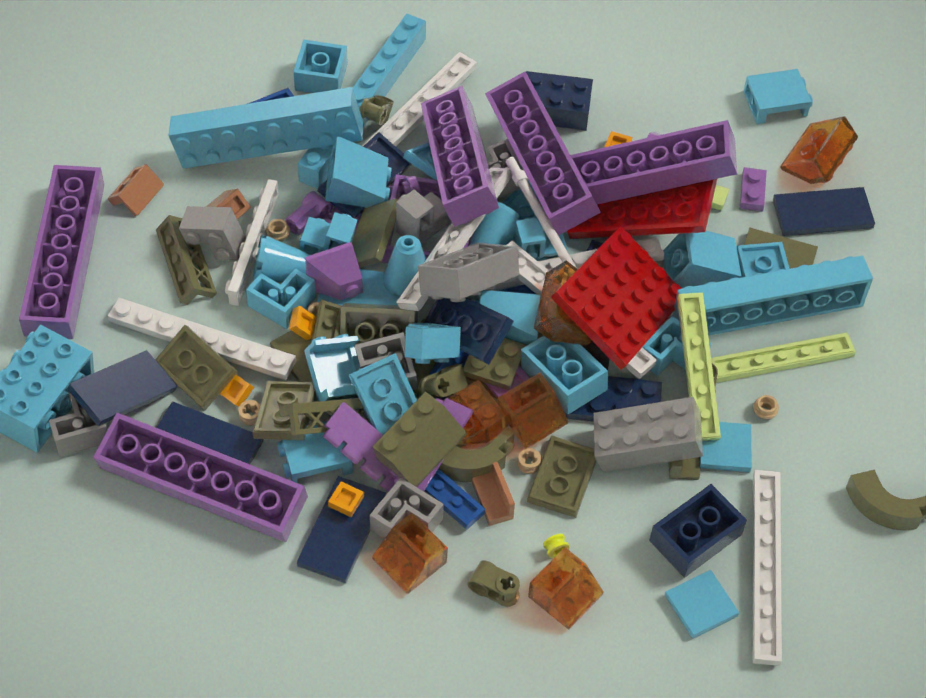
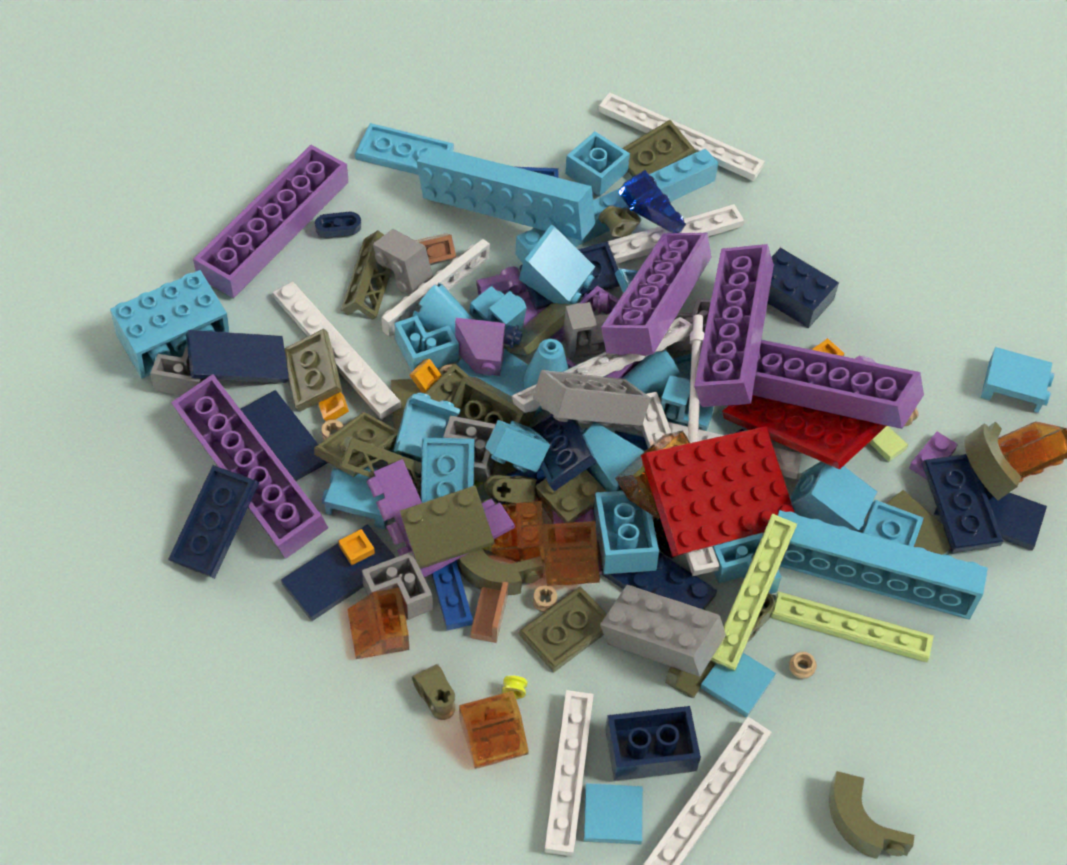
camera: 30 degrees right, 0 degrees up
(123, 228) = (338, 224): none -> dark blue plate
(131, 134) = (395, 148): none -> medium azure tile
(137, 189) = (372, 198): nougat panel -> none
(205, 542) = (213, 521): none -> dark blue tile
(278, 225) = (465, 287): tan plate -> none
(360, 250) = (513, 336): none -> dark blue plate
(365, 34) = (658, 149): none -> olive tile
(370, 12) = (647, 120): none -> white plate
(396, 81) = (648, 201): none -> clear blue slope
(647, 591) = (569, 774): none -> white plate
(802, 215) = (962, 504): none -> dark blue tile
(804, 170) = (989, 461): none -> olive arch

